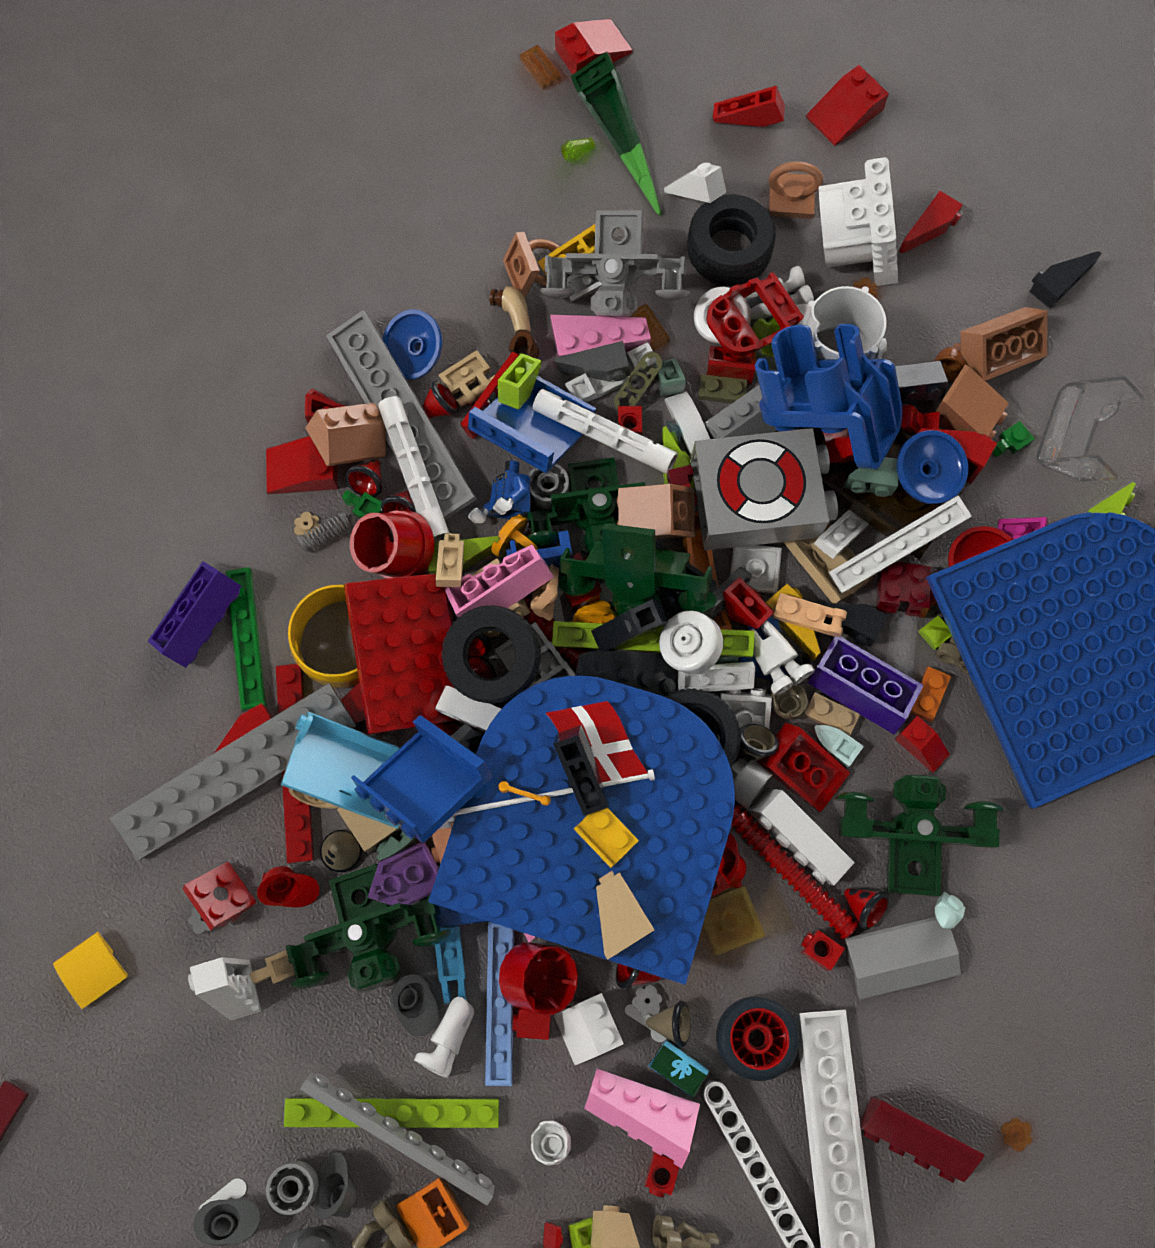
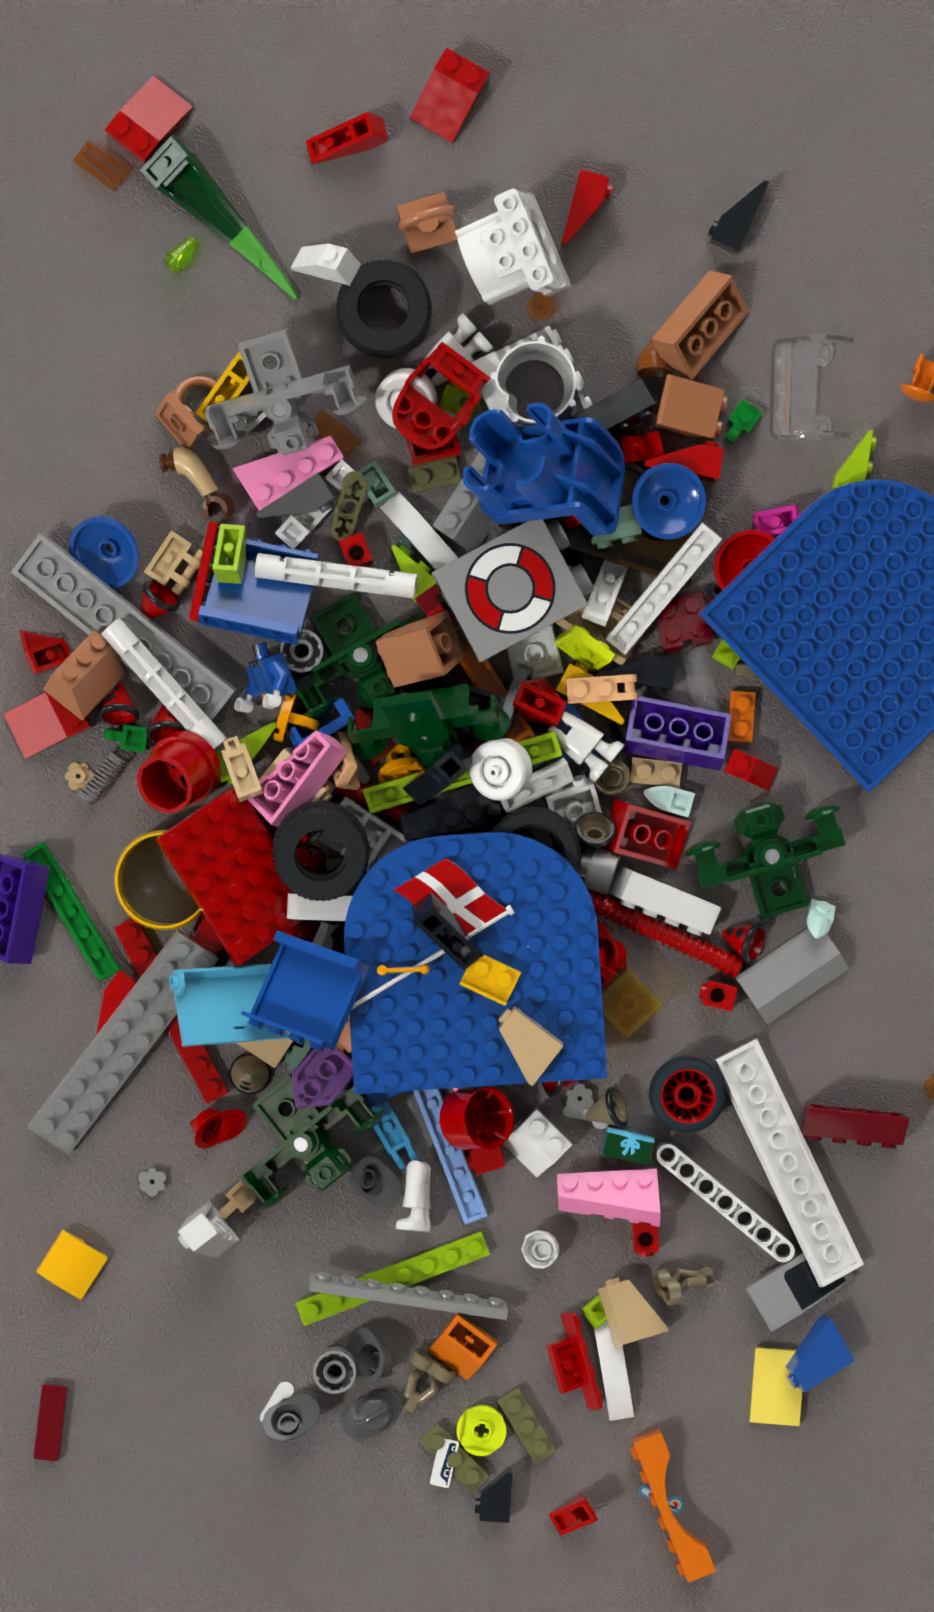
camera: 20 degrees left, 15 degrees up
(217, 912) = (164, 1172): red piece -> none
(806, 573) = (584, 648): none -> neon yellow plate

